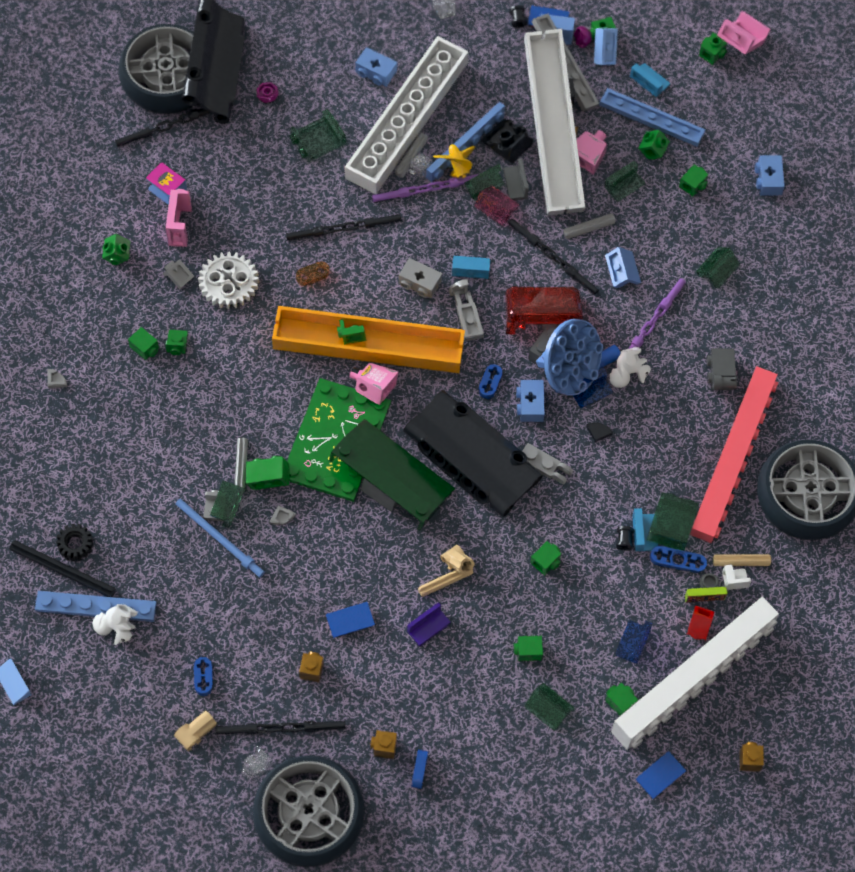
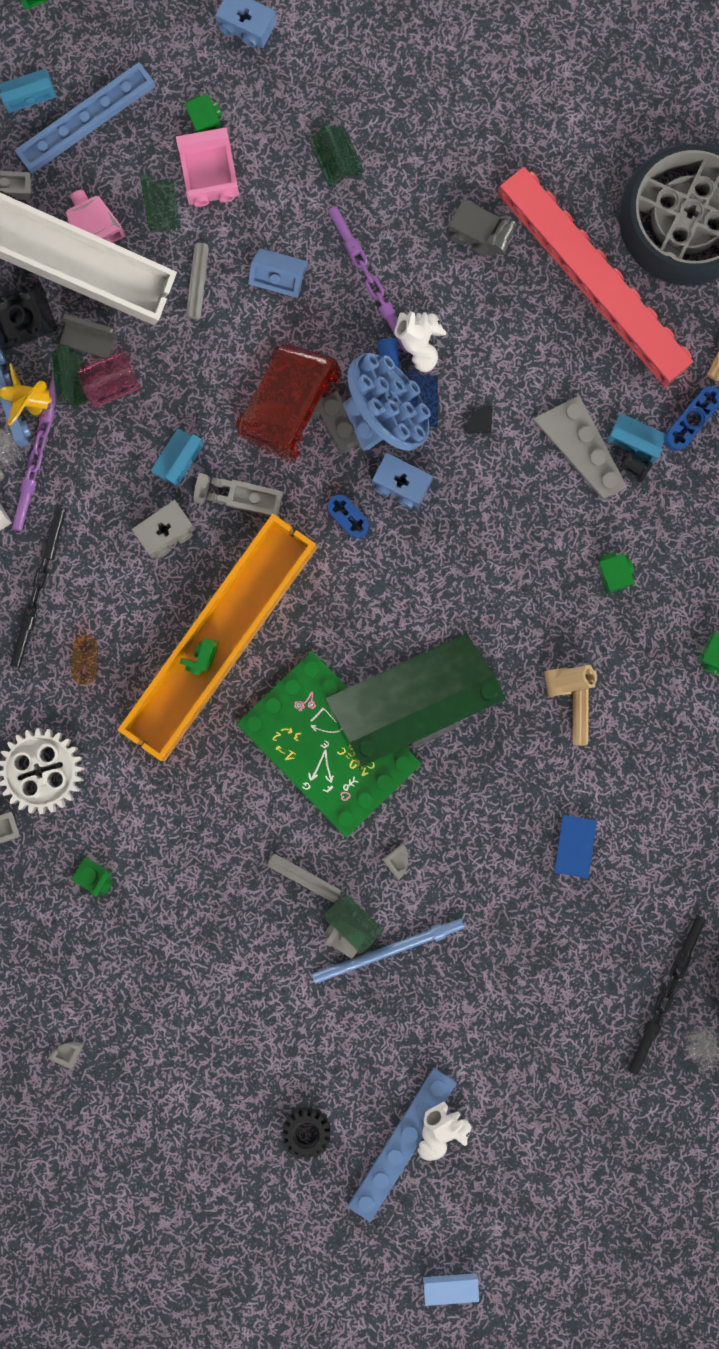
camera: 55 degrees left, 20 degrees up
(63, 569) = (332, 1163): black axle -> none
(143, 344) = (77, 921): green brick -> none
(192, 733) = (624, 1103): tan piece -> none
(198, 676) = (555, 1062): blue beam -> none
(267, 473) = (337, 853): green brick -> none
(311, 667) = (614, 923): pearl gold brick -> none
(374, 381) = (280, 660): bright pink torso -> none
(428, 625) = (629, 756): dark purple panel -> none
(472, 453) = (436, 589): black panel -> none
(546, 464) = (488, 510): light grey hinge -> none
(571, 271) = (250, 337): black piece -> none
(622, 495) = (578, 439): none -> light grey wing
(653, 144) = (128, 137): green brick -> none
(664, 198) = (208, 167): none -> bright pink panel
(672, 521) = (646, 396): clear green panel -> none

